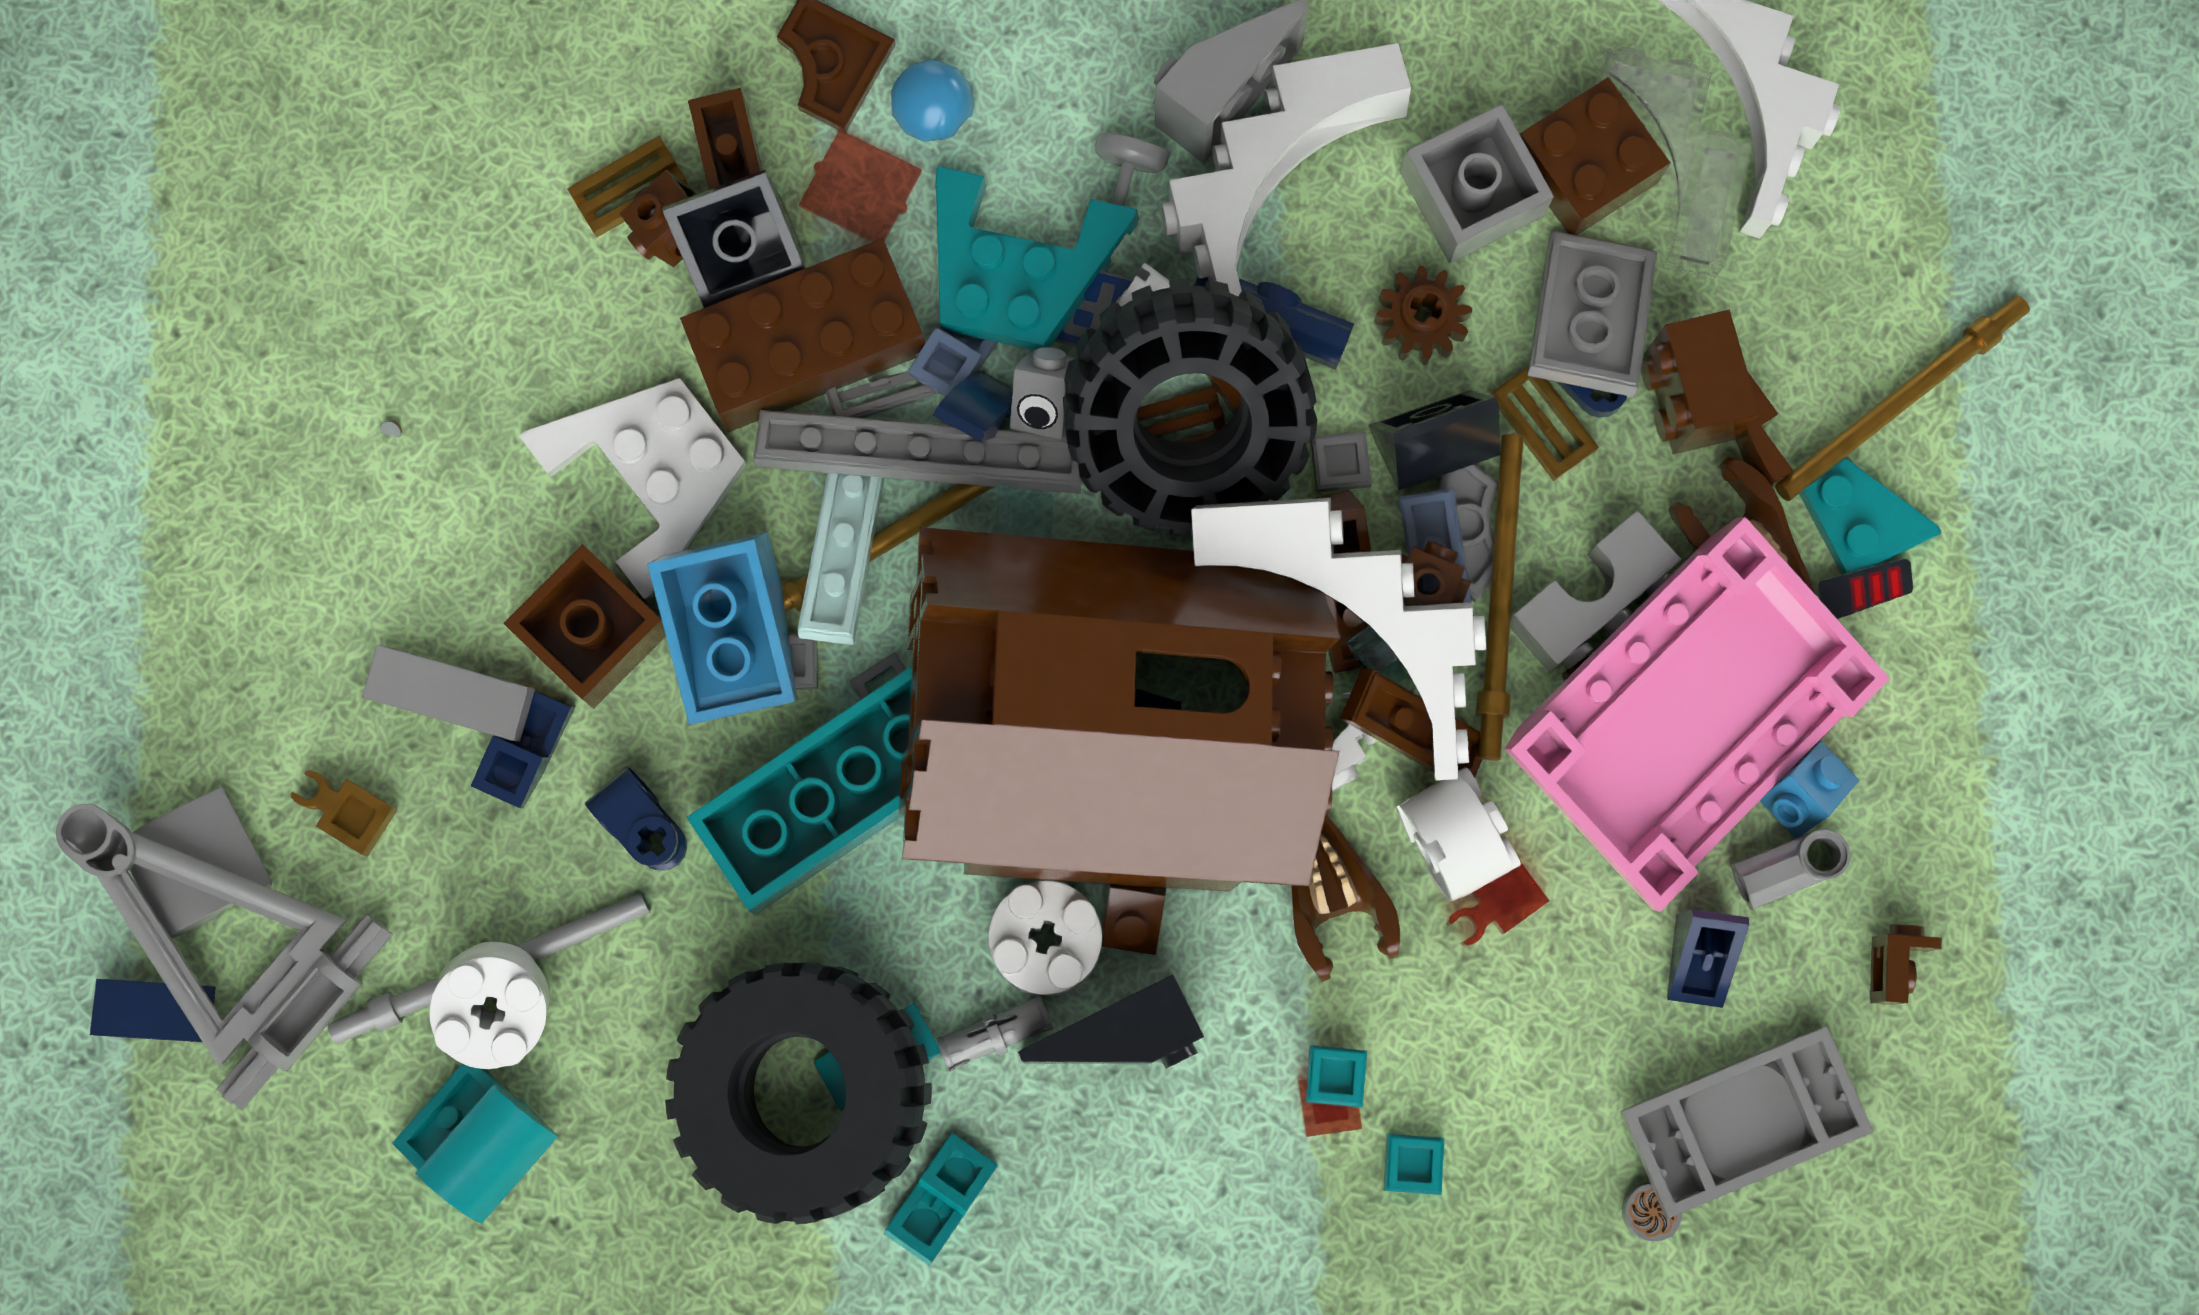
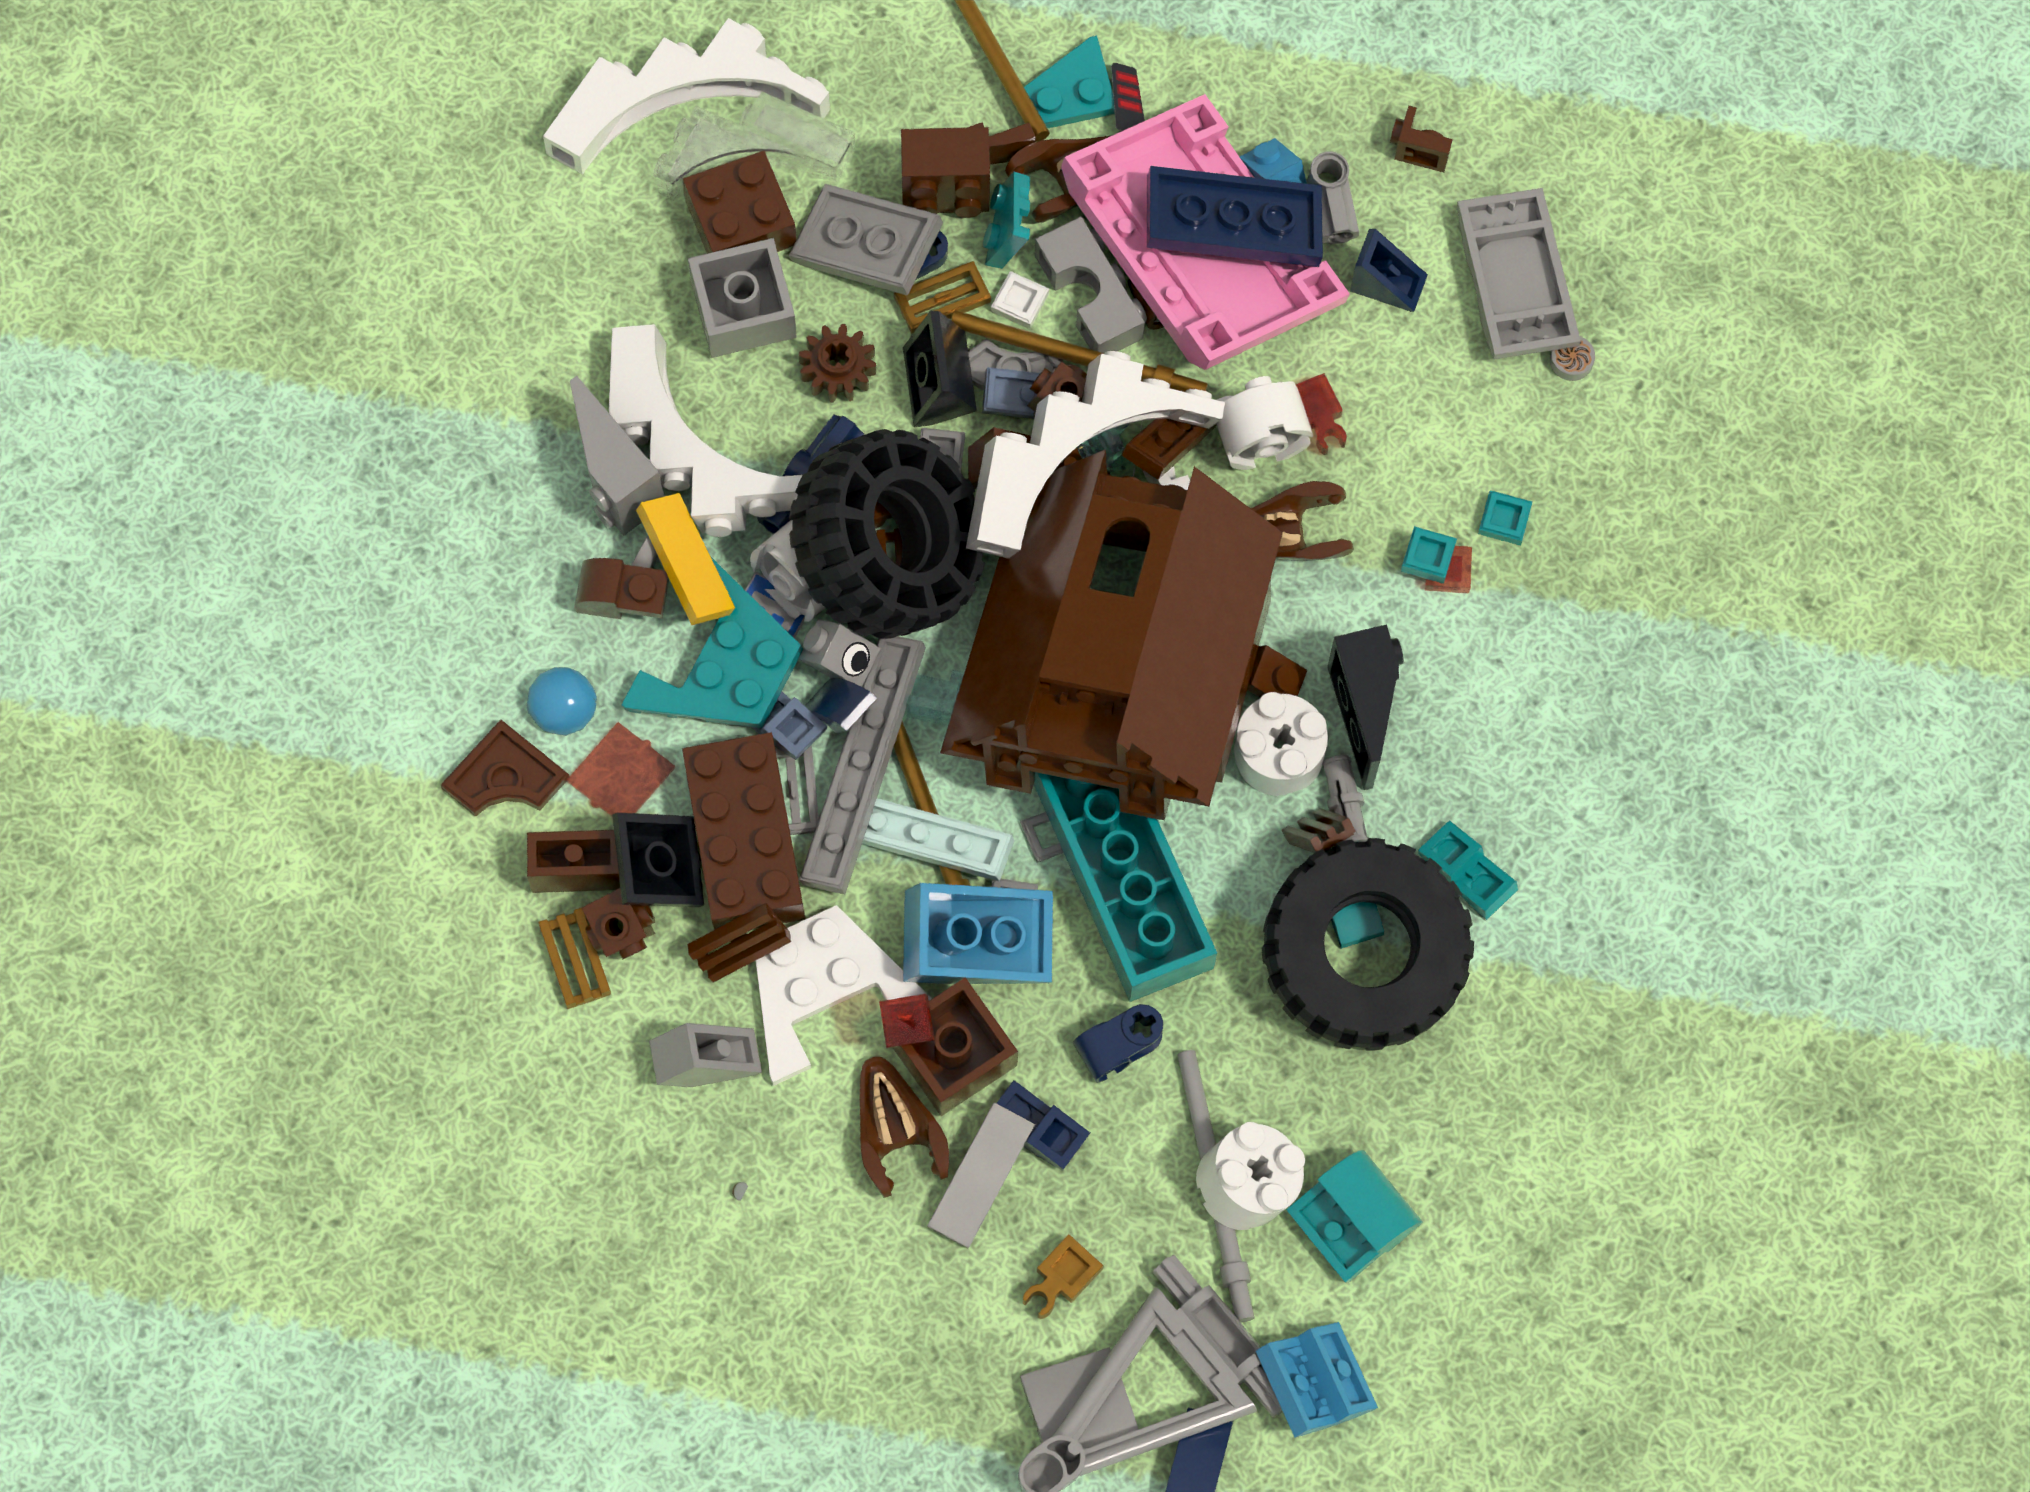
camera: 80 degrees left, 10 degrees down
(267, 1131) = (1316, 1379): none -> dark azure slope
(497, 575) = (894, 1119): none -> reddish brown animal
(531, 353) = (704, 1055): none -> light grey slope
(585, 560) = (906, 1021): none -> clear red tile
(667, 358) = (743, 947): none -> reddish brown tile
(951, 994) = (1328, 827): none -> tile
(1070, 129) = (613, 588): none -> reddish brown brick
(1116, 187) = (685, 558): none -> yellow tile
(1562, 514) = (1020, 300): none -> white tile
(1682, 472) = (1005, 234): none -> teal wing
(1723, 745) = (1234, 216): none -> dark blue plate

